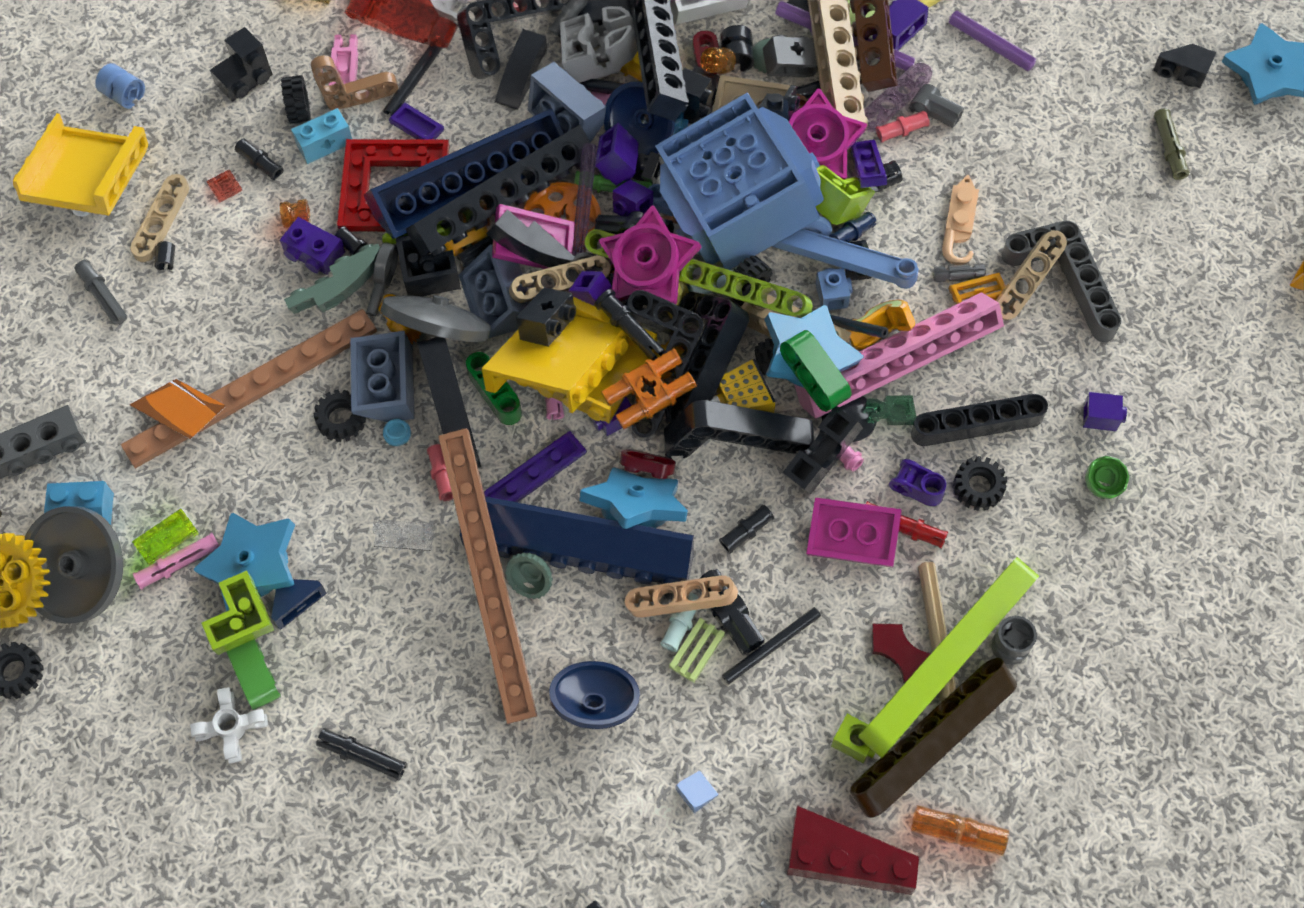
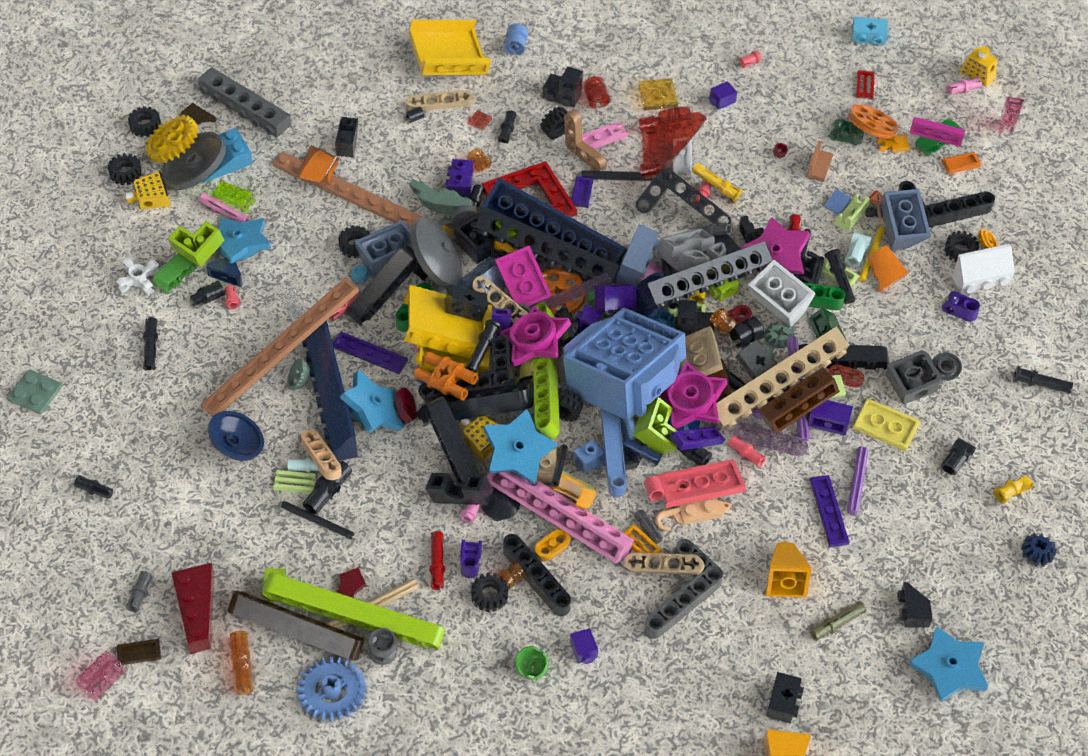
camera: 60 degrees right, 10 degrees down
(82, 650) = (149, 192): none -> yellow torso
(96, 284) = (377, 92): dark grey axle -> none
(153, 351) = (346, 137): none -> black slope
(273, 36) = (596, 92): none -> clear red wheel
(317, 639) = (207, 294): none -> black hinge
(321, 135) = (540, 147): medium azure brick -> none
(341, 611) = (232, 300): none -> coral pin
(521, 64) = (662, 222): black slope -> none
(529, 242) = (512, 271): slope -> none
(696, 791) = (202, 515): slope -> none
(746, 528) = (389, 475): black pin -> none
(758, 29) = (771, 335): none -> sand green gear
(782, 105) = (699, 362): black bracket -> none
(815, 370) = (497, 449): green beam -> none
(854, 532) = (414, 531): dark pink plate -> none
(894, 408) = (517, 524): clear green plate -> none
(930, 186) = (700, 483): none -> coral hinge
(936, 106) = (775, 463): dark grey piece -> none
(941, 386) = (551, 545): none -> light orange plate
(966, 445) = (513, 574): none -> clear orange wheel
(1020, 86) = (829, 511): none -> dark purple tile
(1060, 709) = (329, 675): none -> medium blue gear
(1089, 157) = (788, 572): none -> light orange slope
(1253, 239) = (780, 708): none -> black brick

